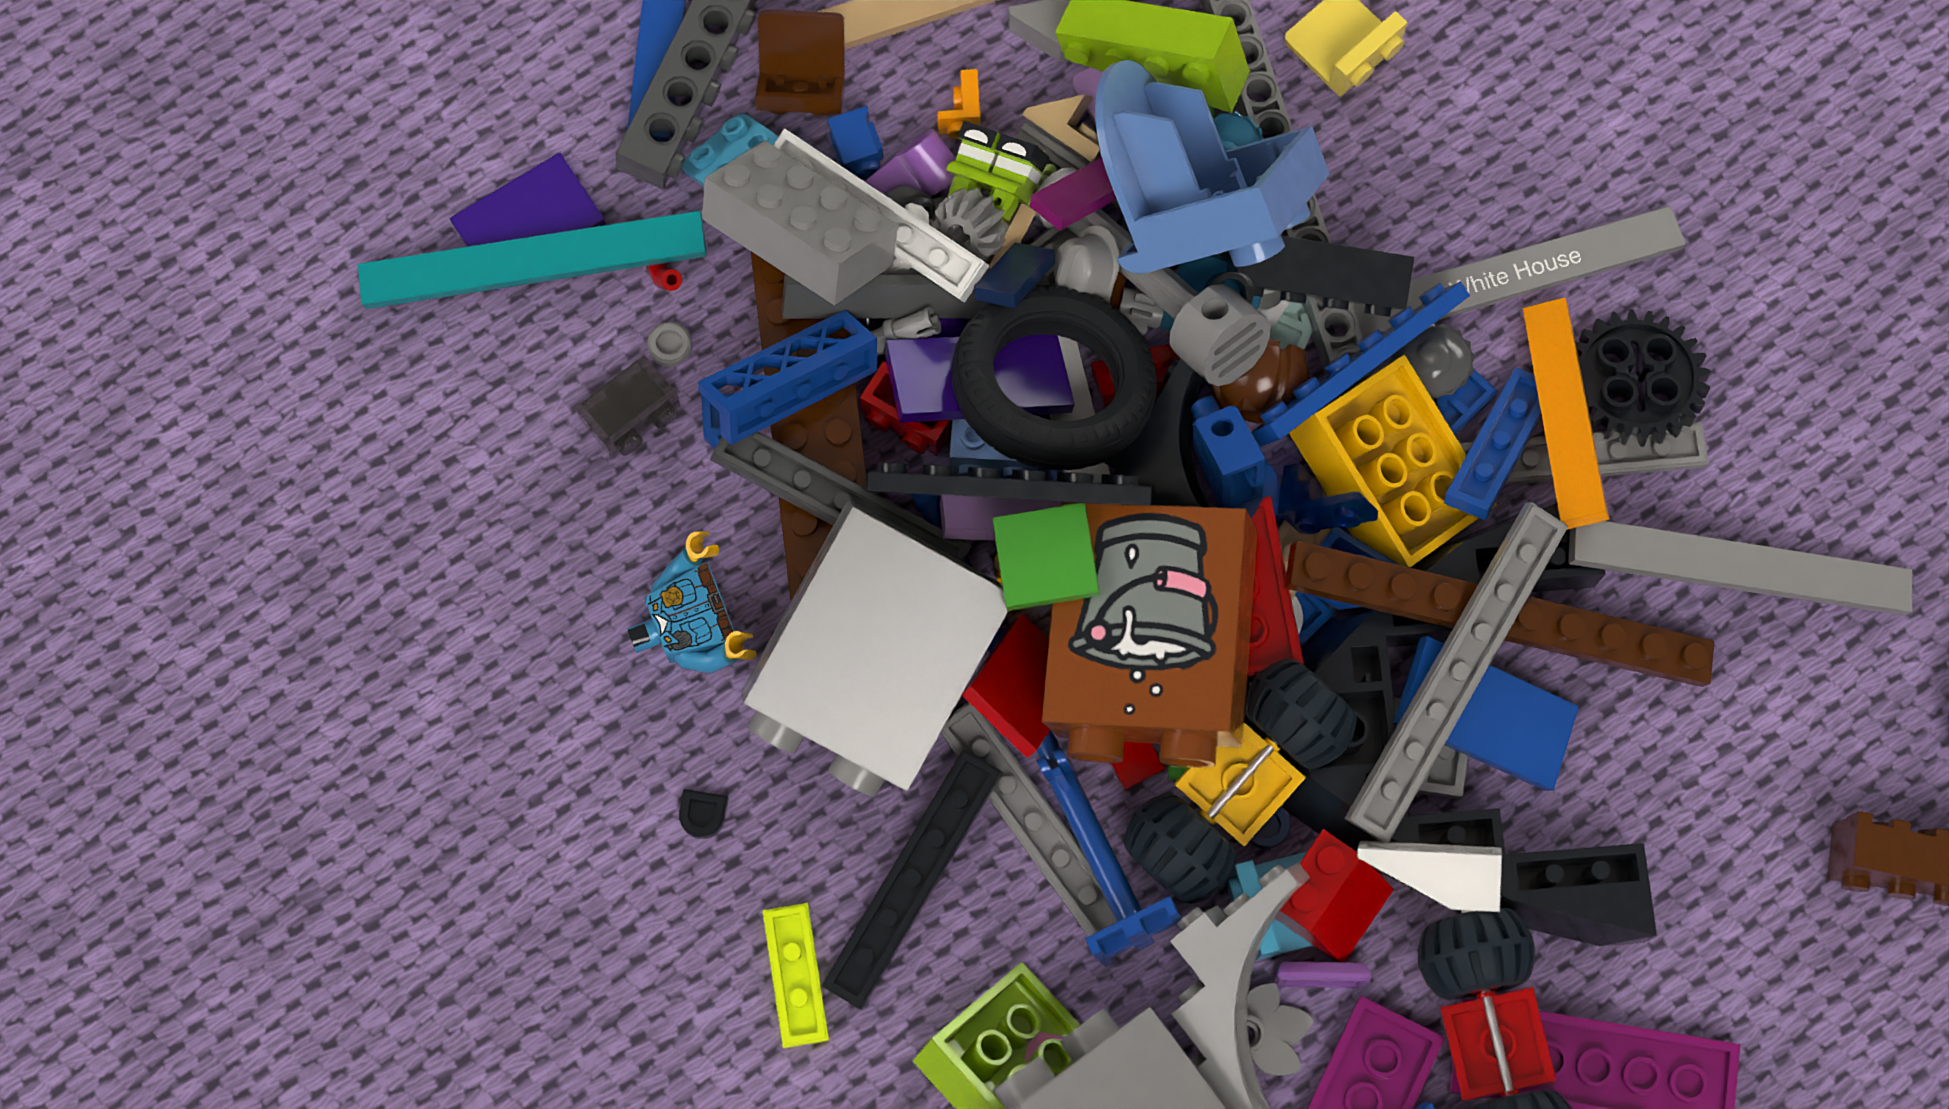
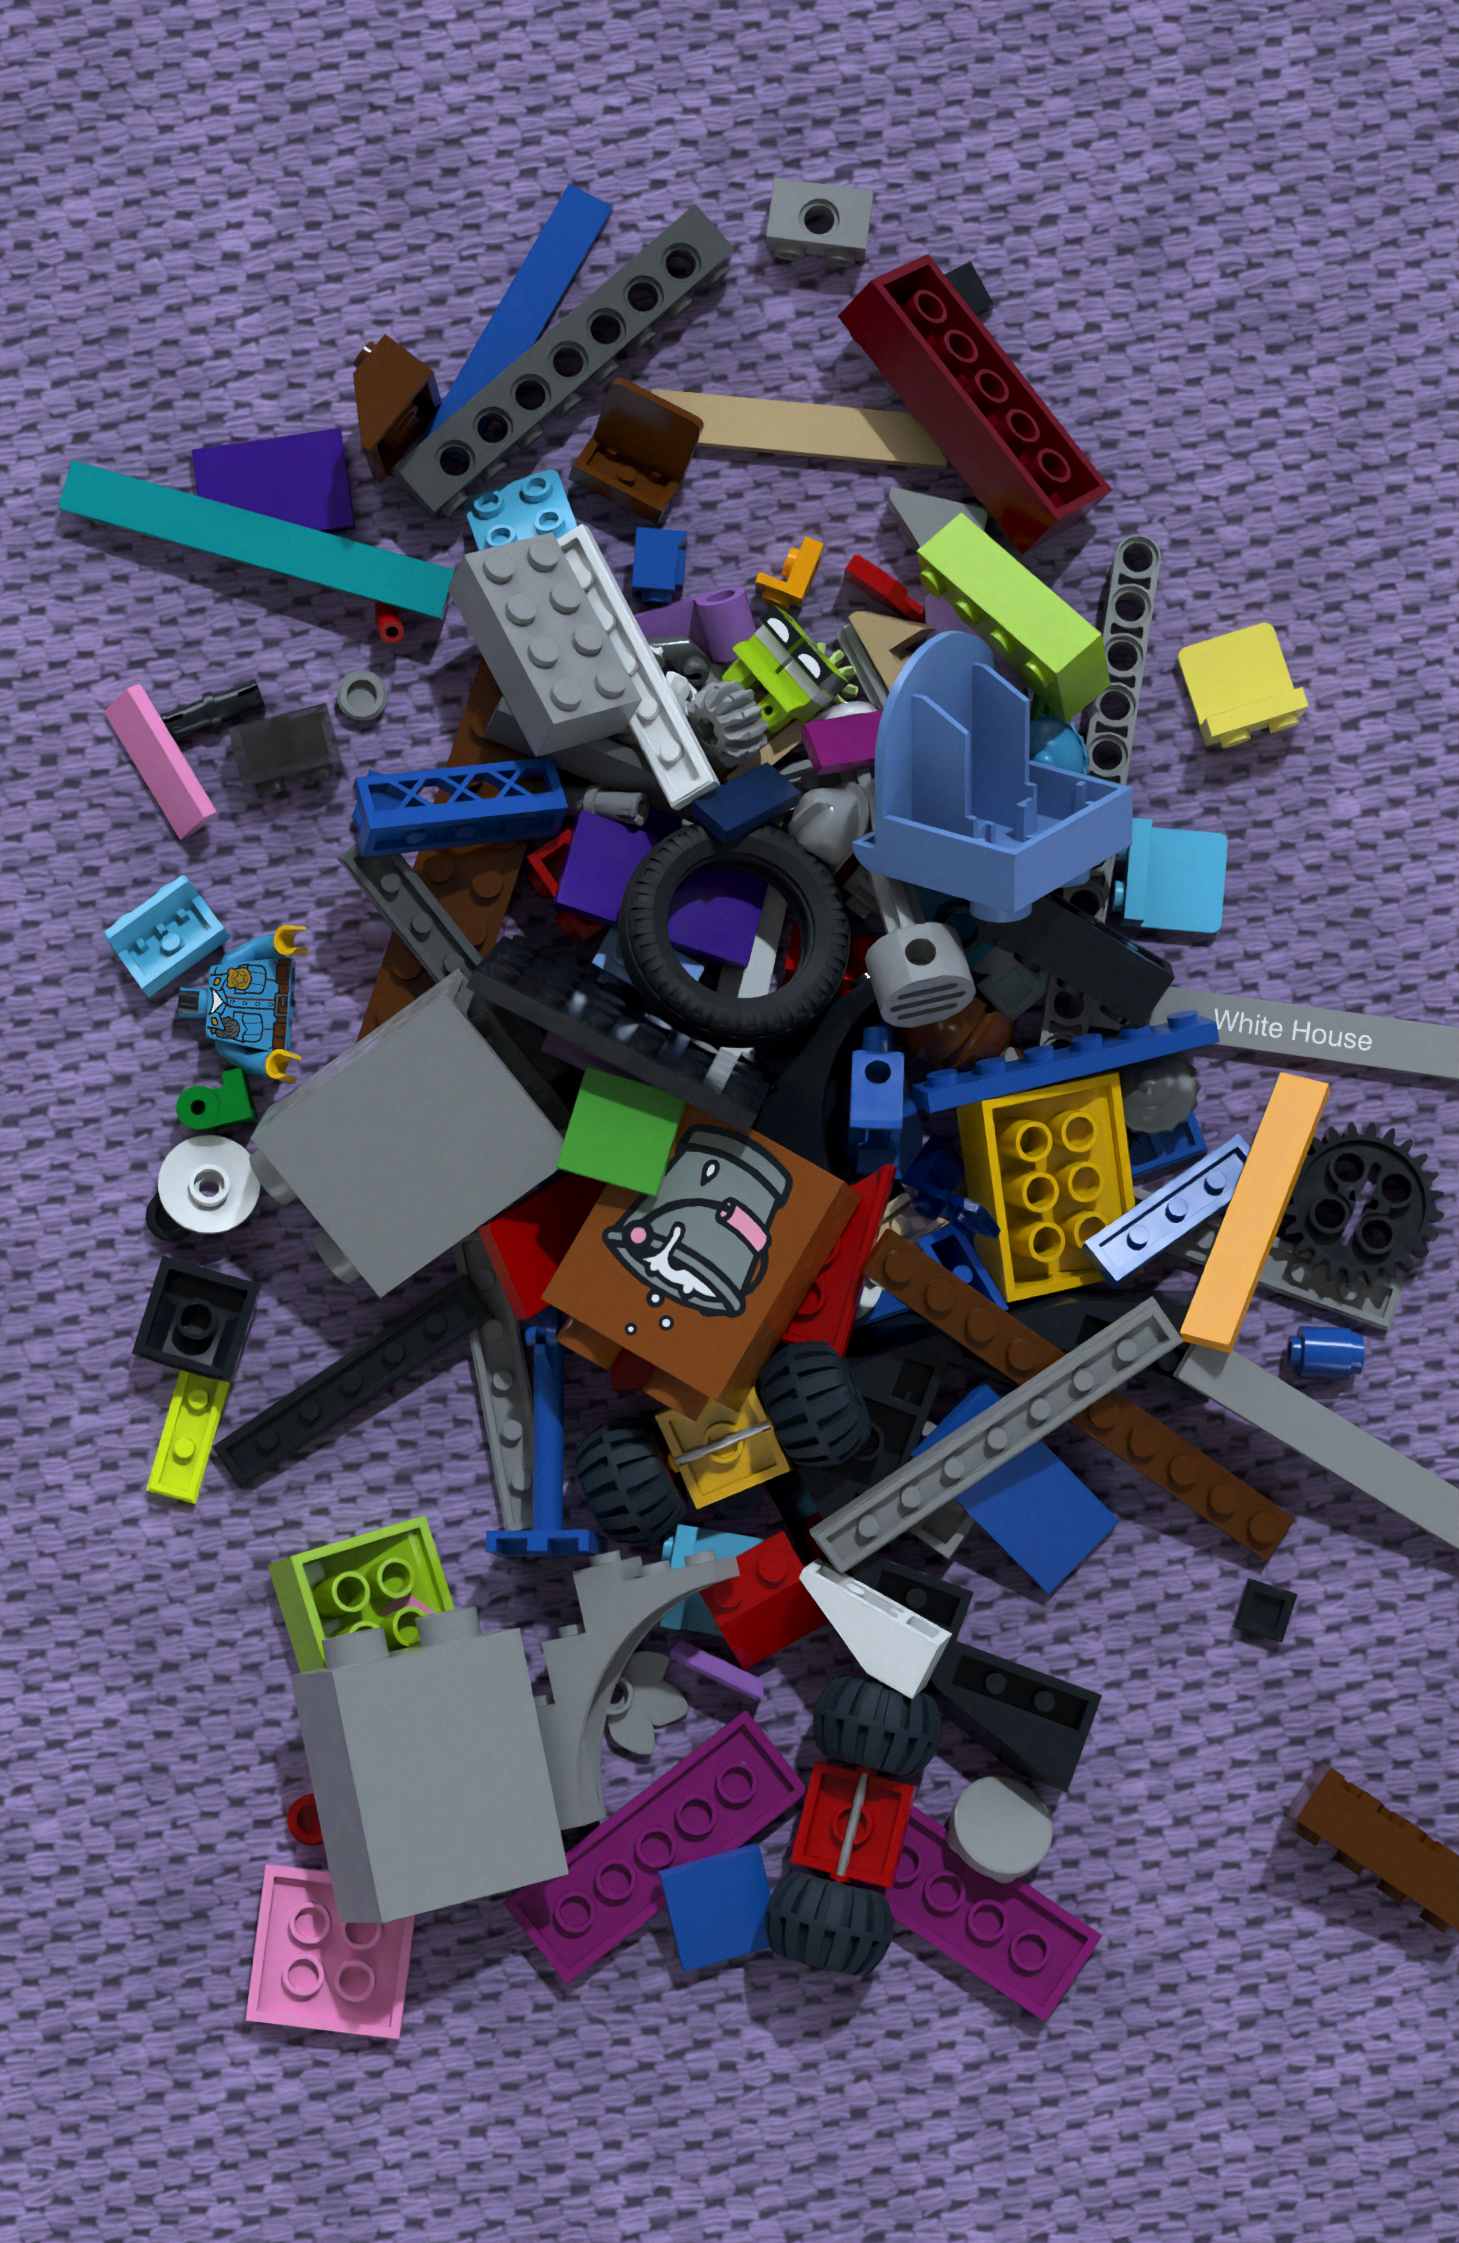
camera: 25 degrees right, 10 degrees up
(531, 462) = (160, 761): none -> bright pink tile
(556, 406) = (214, 710): none -> black pin
(593, 102) = (393, 402): none -> reddish brown slope
(596, 593) = (166, 935): none -> medium azure bracket
(701, 710) = (219, 1107): none -> green leg
(717, 755) = (208, 1160): none -> white dish
(762, 885) = (196, 1320): none -> black slope
(1033, 86) = (883, 588): none -> red tile
(1367, 202) = (1171, 879): none -> medium azure bracket
(1614, 994) = (1000, 1828): none -> light grey tile
(1670, 501) = (1325, 1352): none -> blue brick
(1727, 724) = (1264, 1610): none -> black tile

